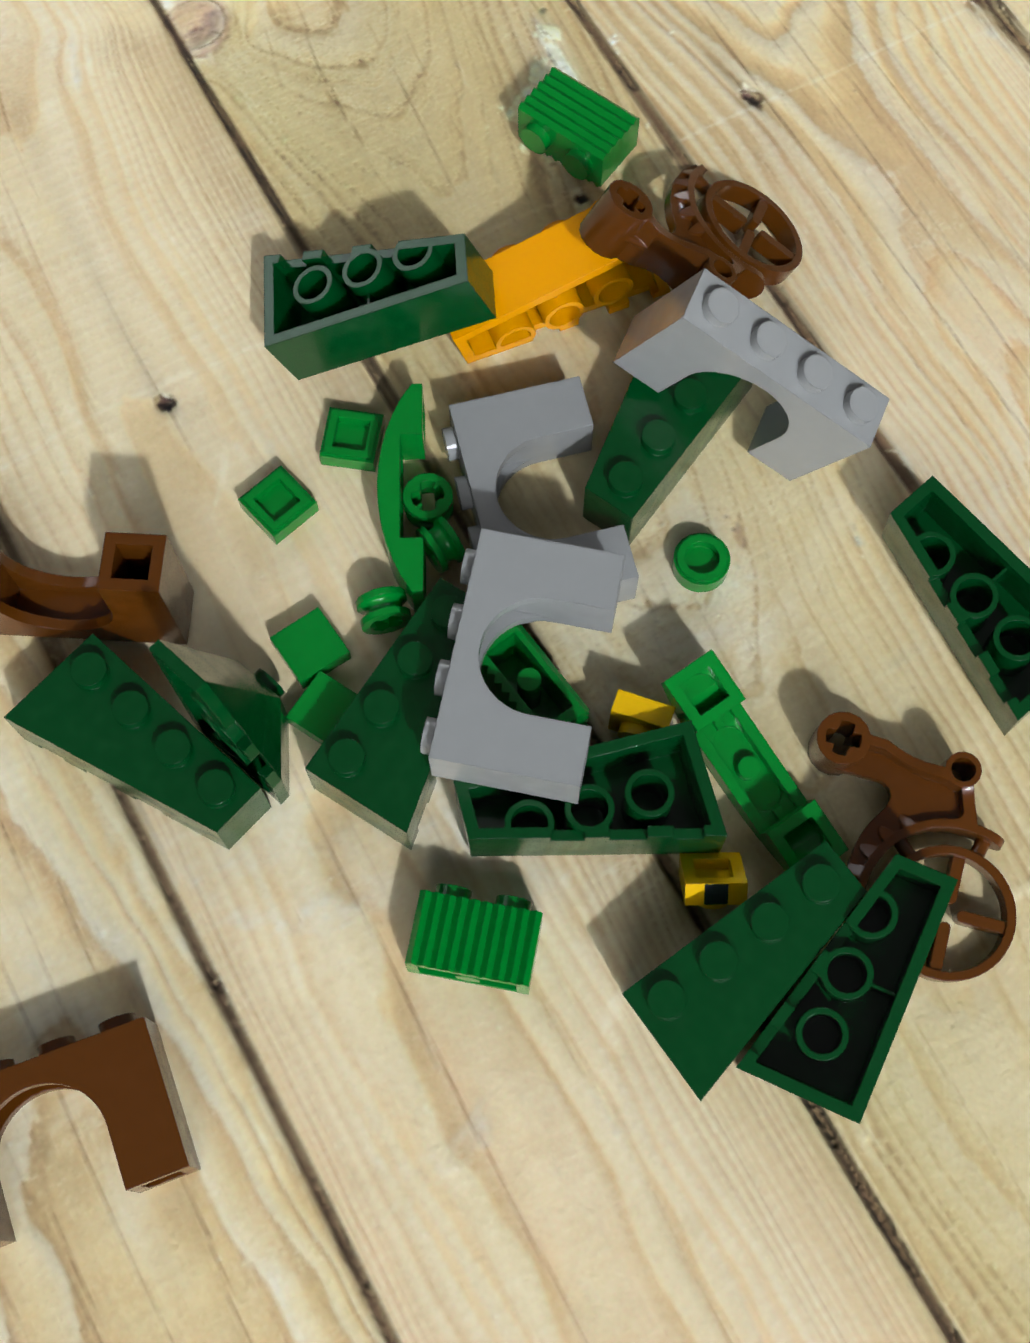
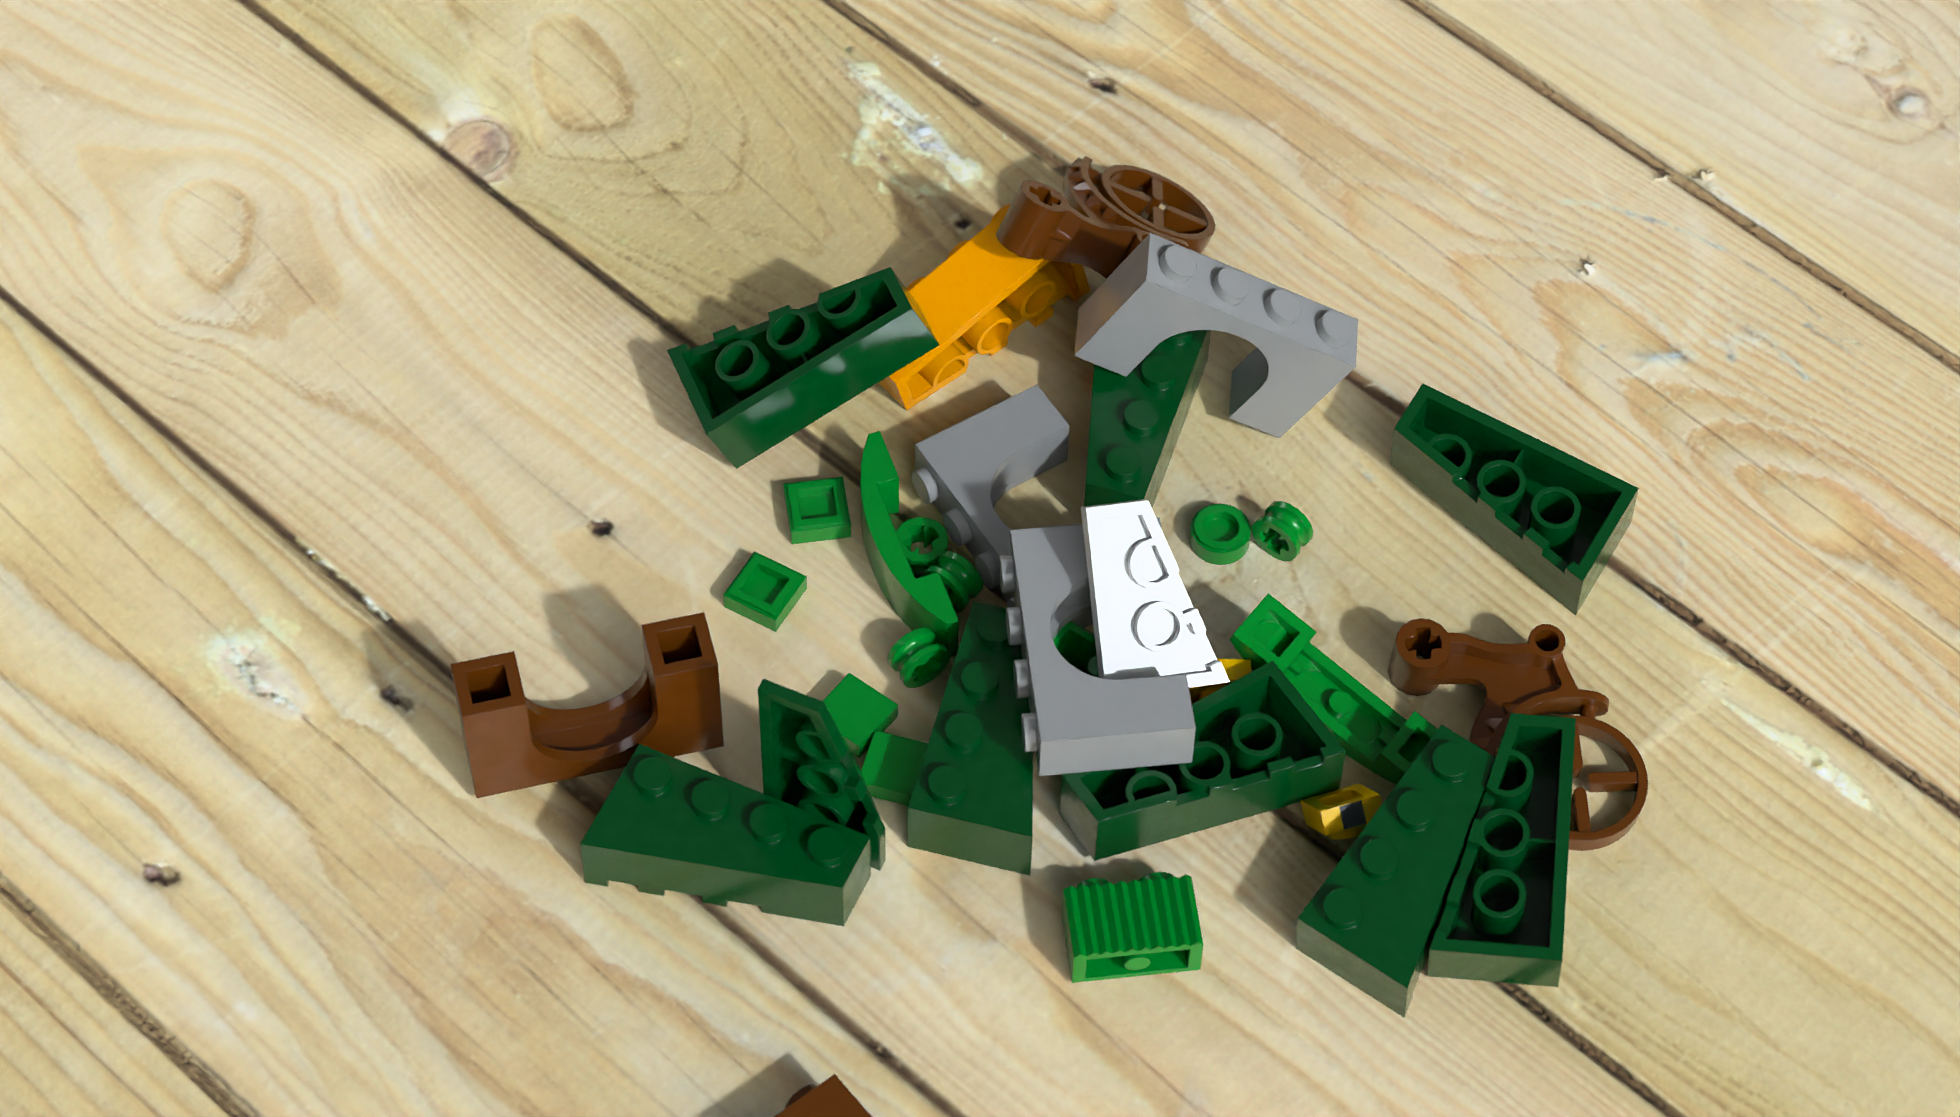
camera: 20 degrees left, 15 degrees down
(574, 641) = (1139, 601): none -> white wing
(577, 127) = (936, 153): green brick -> none
(756, 578) = (1282, 531): none -> green bush

